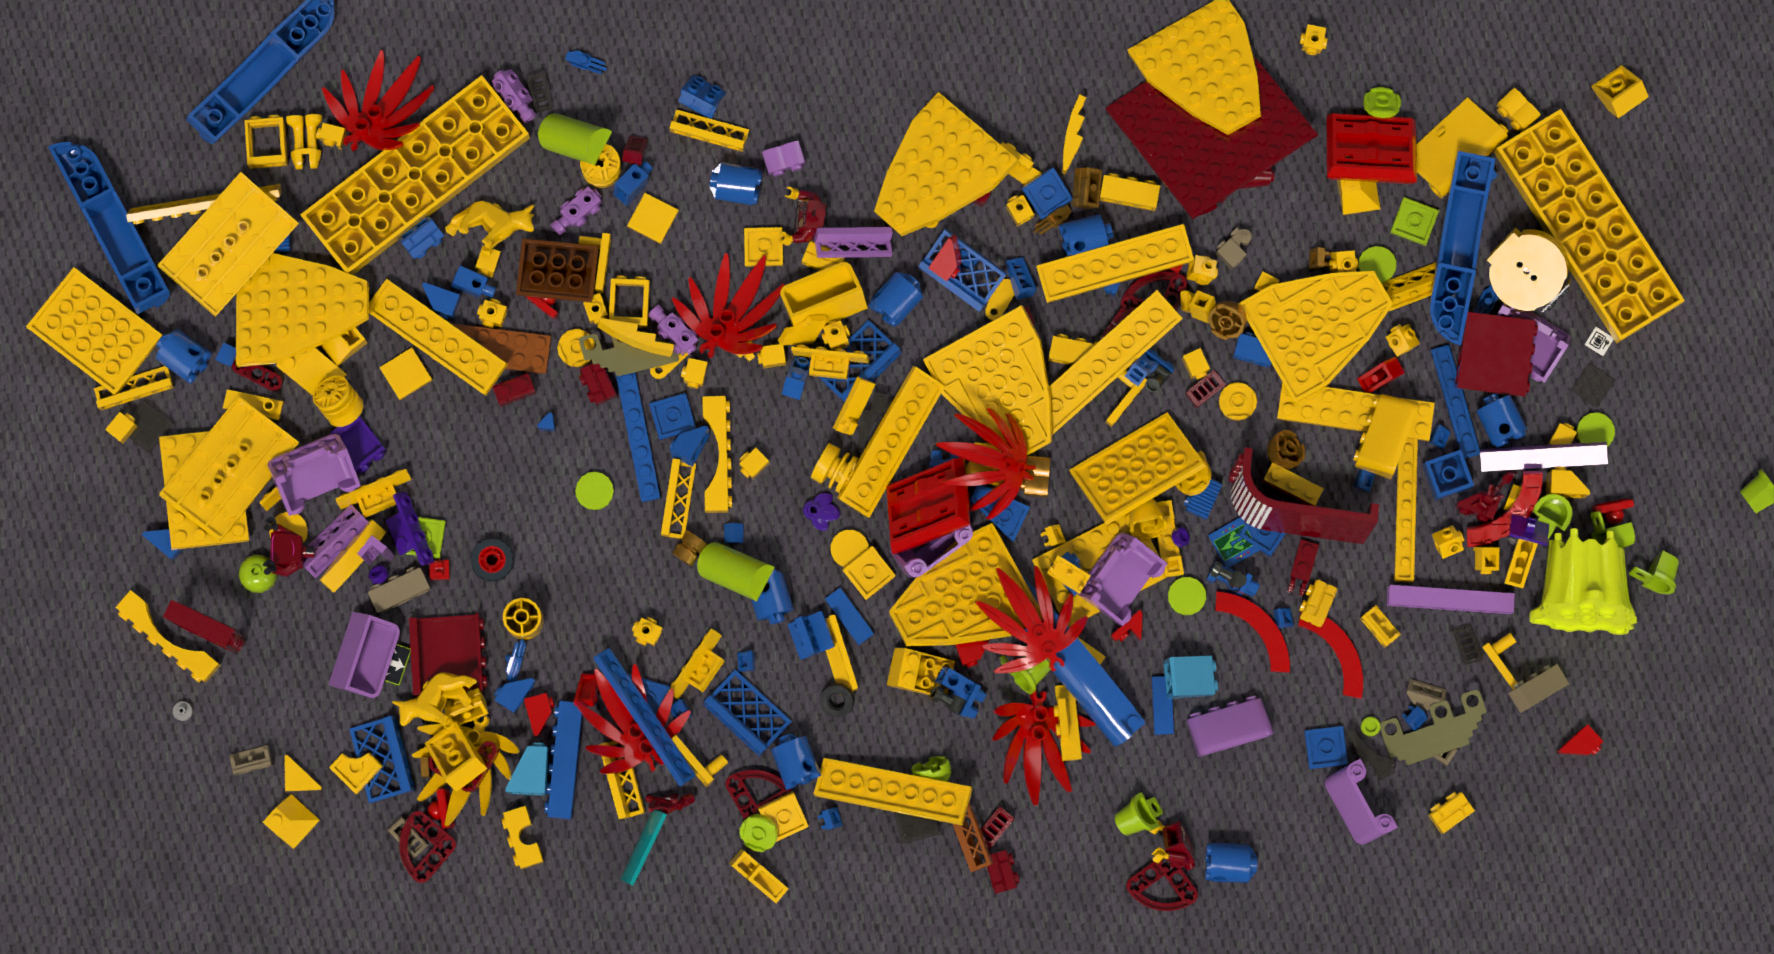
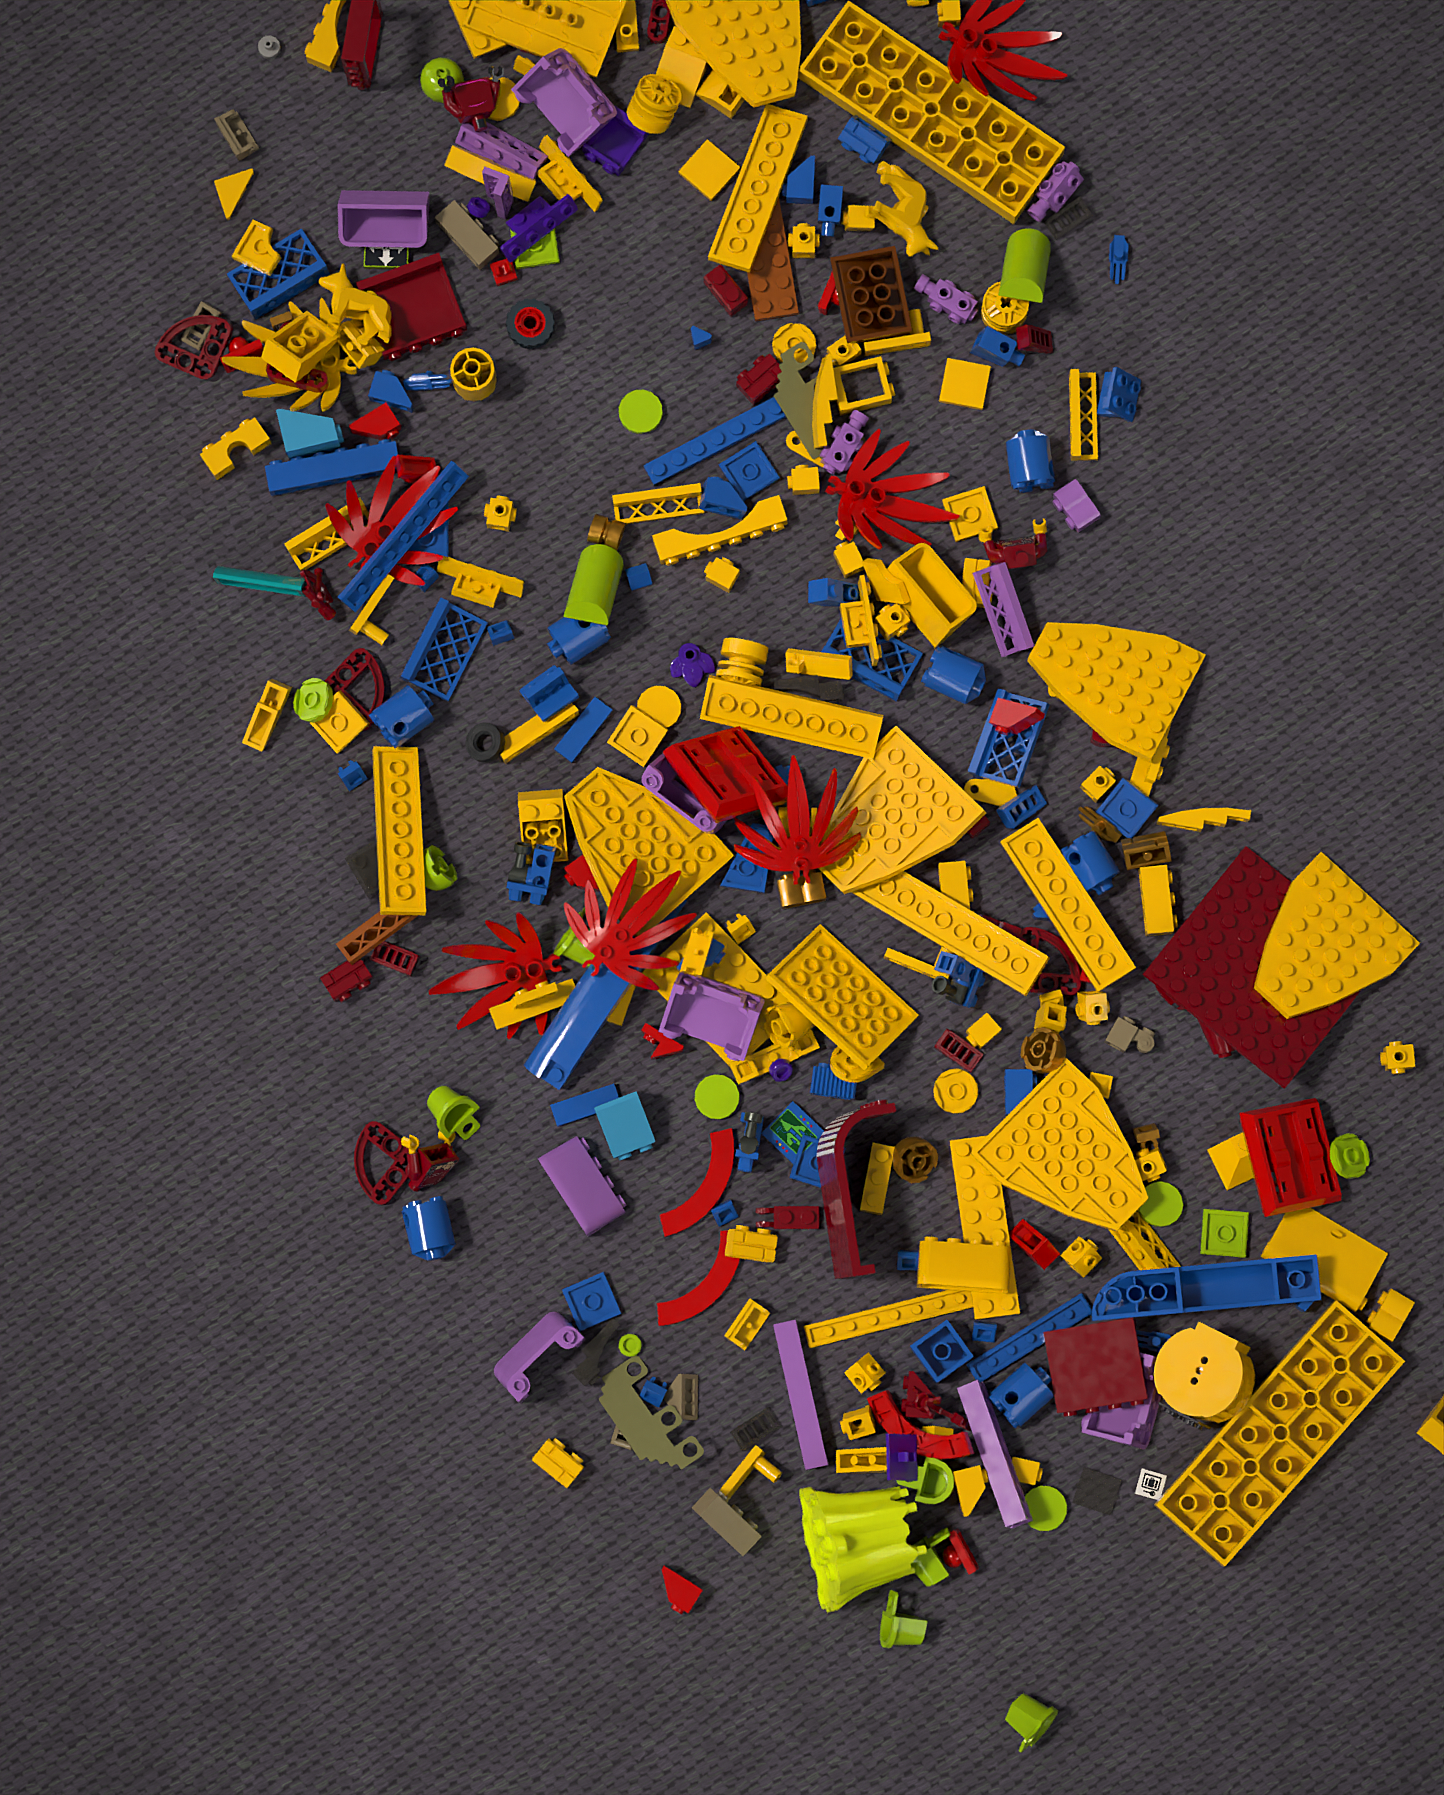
camera: 80 degrees right, 0 degrees up
(291, 821) = (182, 196): yellow slope -> none

